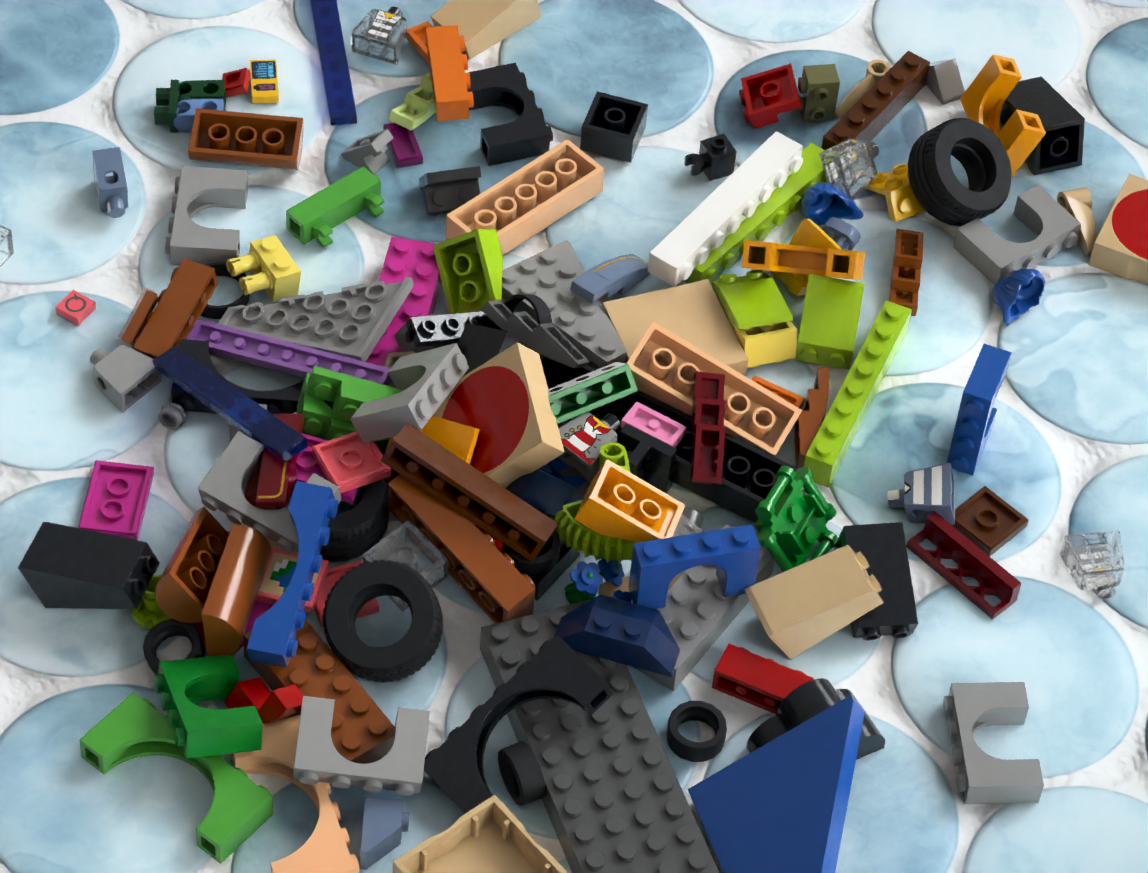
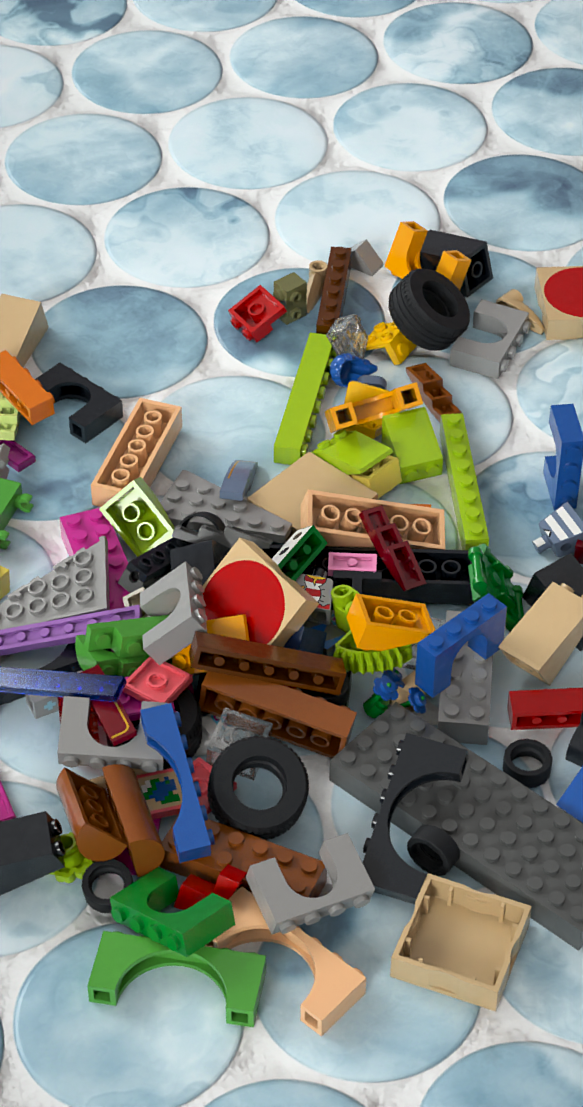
camera: 25 degrees left, 5 degrees down
(381, 829) = (357, 939): sand blue slope -> none
(449, 188) = (74, 468): black bracket -> none
(613, 126) = (162, 377): black brick -> none
(621, 634) = (436, 716): dark blue wedge -> none
(714, 159) = (247, 371): black brick -> none
(725, 209) = (288, 400): white brick -> none
(812, 416) = (441, 500): dark orange slope -> none
(1018, 293) = (519, 374): blue hair -> none

